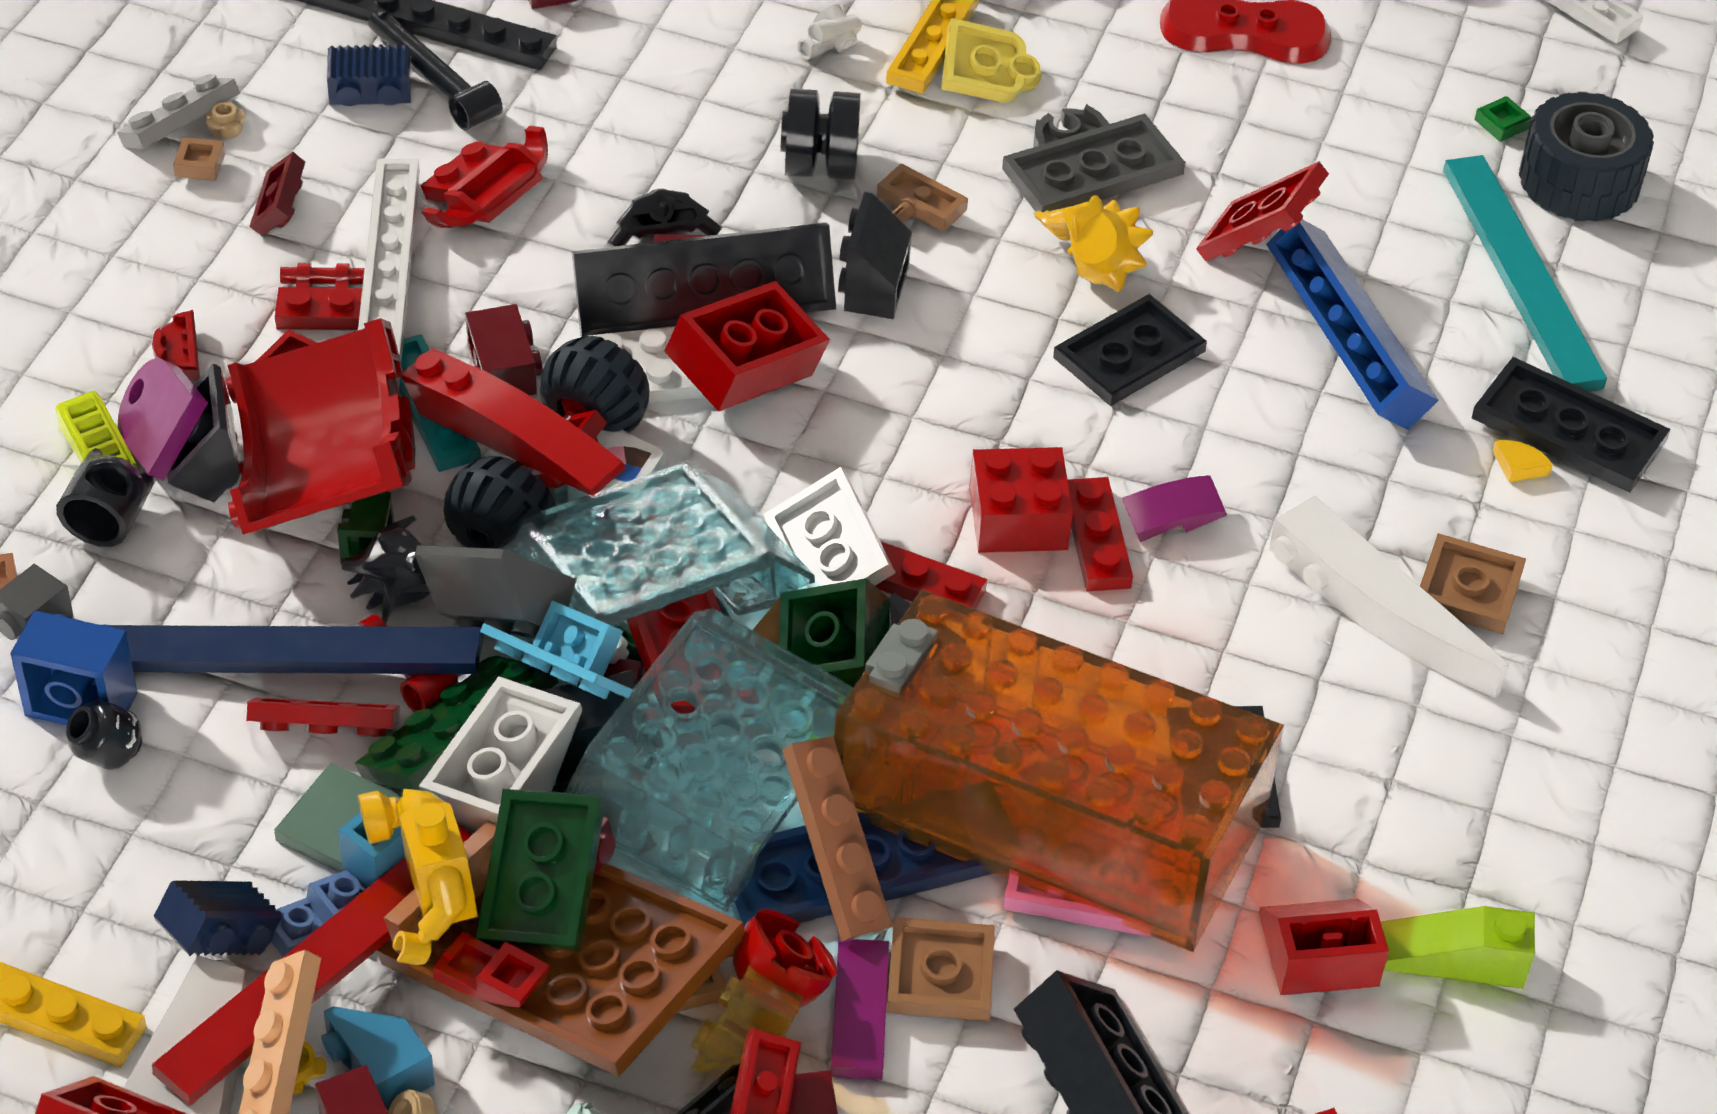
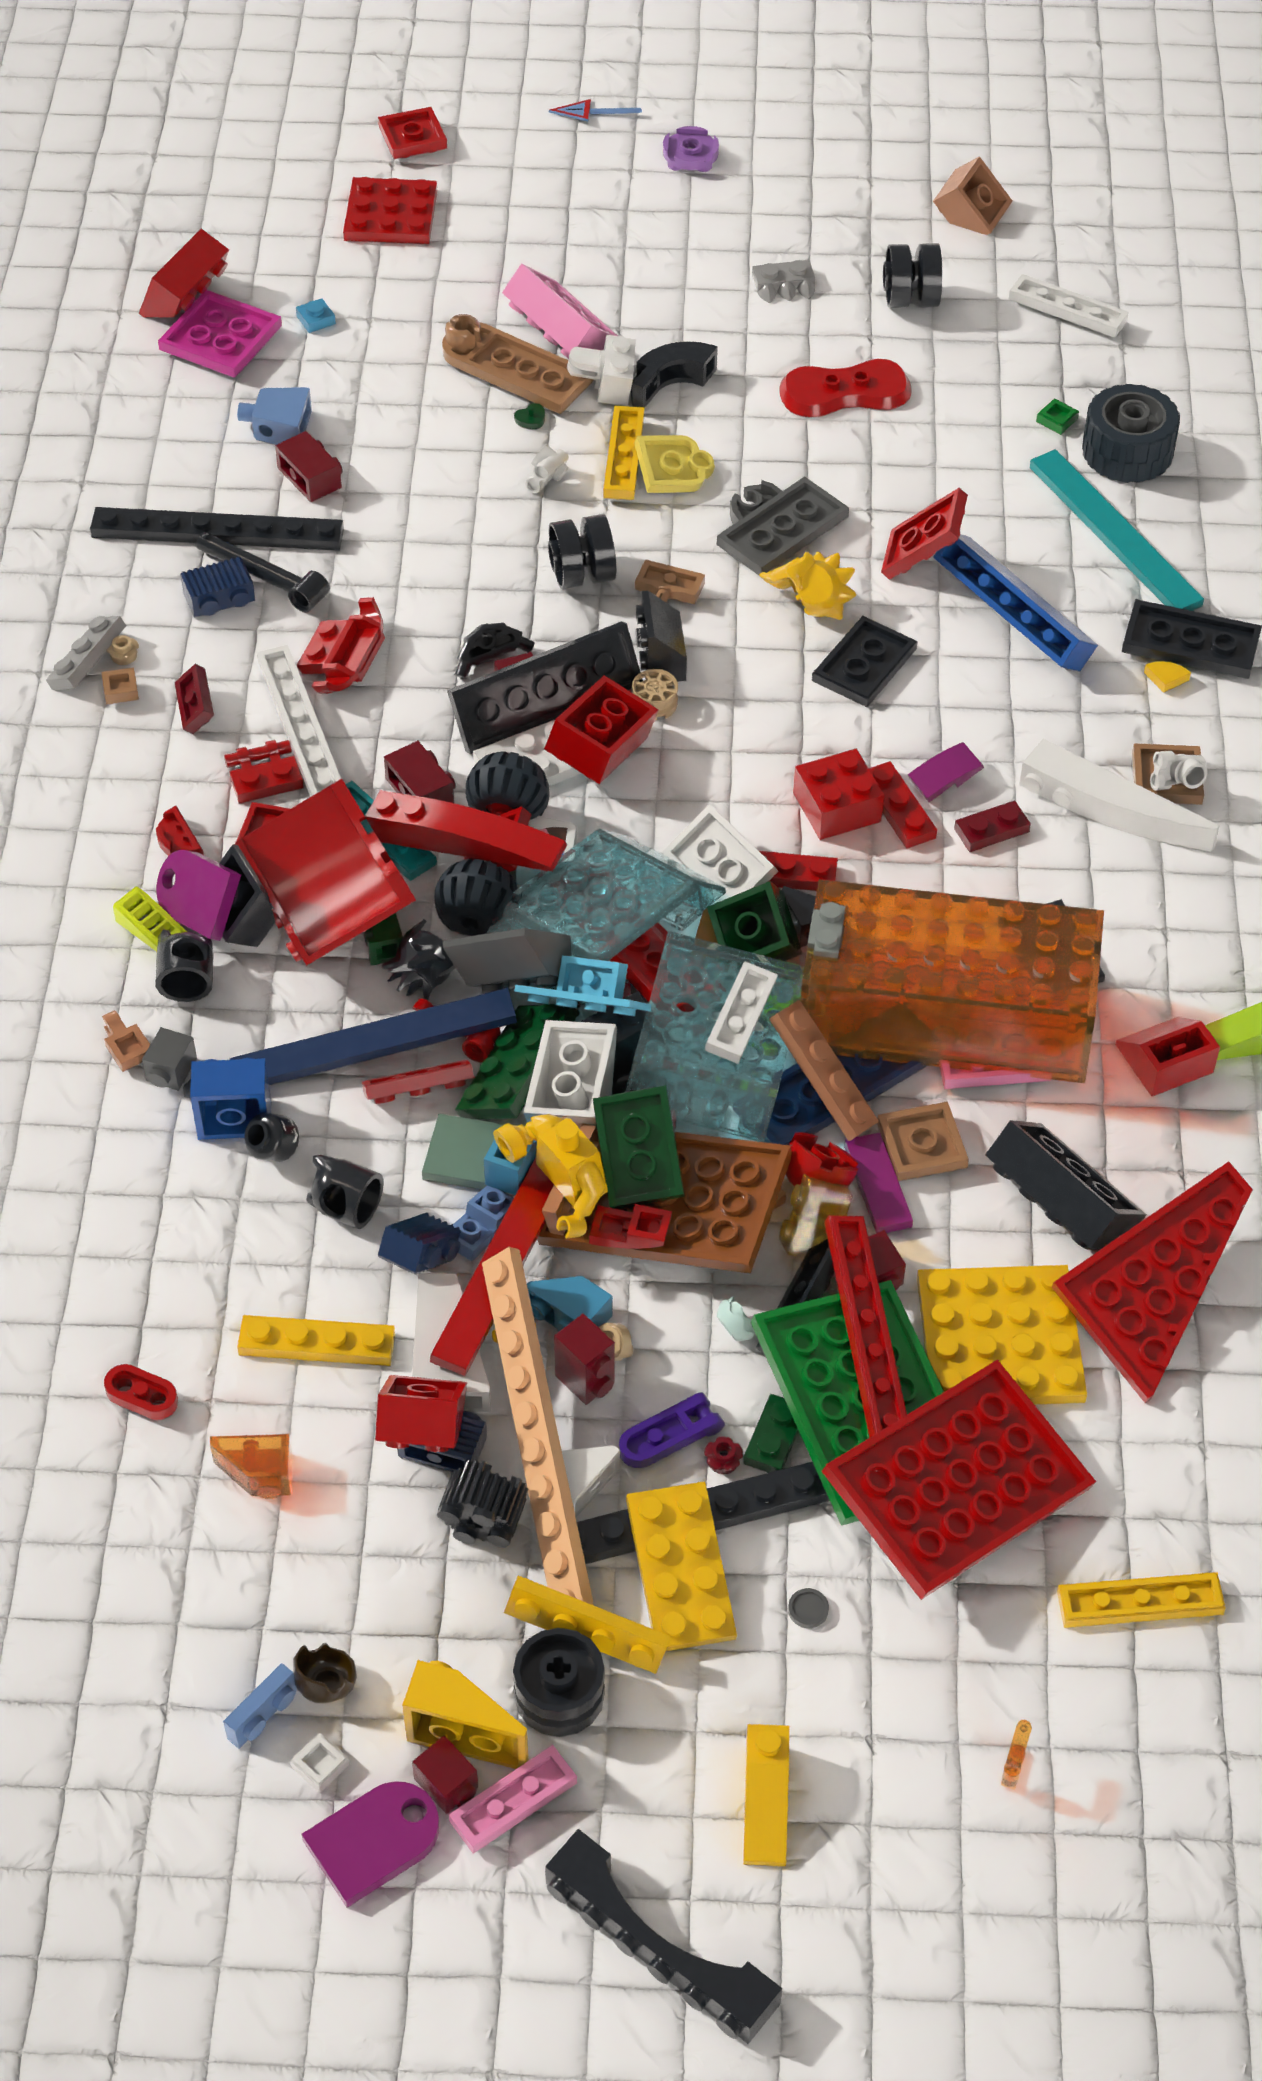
camera: 15 degrees left, 5 degrees up
(163, 827) = (345, 1190): none -> black piece
(746, 731) = (741, 1012): none -> white plate
(845, 323) = (657, 690): none -> tan wheel
(1209, 591) = (992, 826): none -> dark red plate
(1478, 578) = (1177, 769): none -> white plate

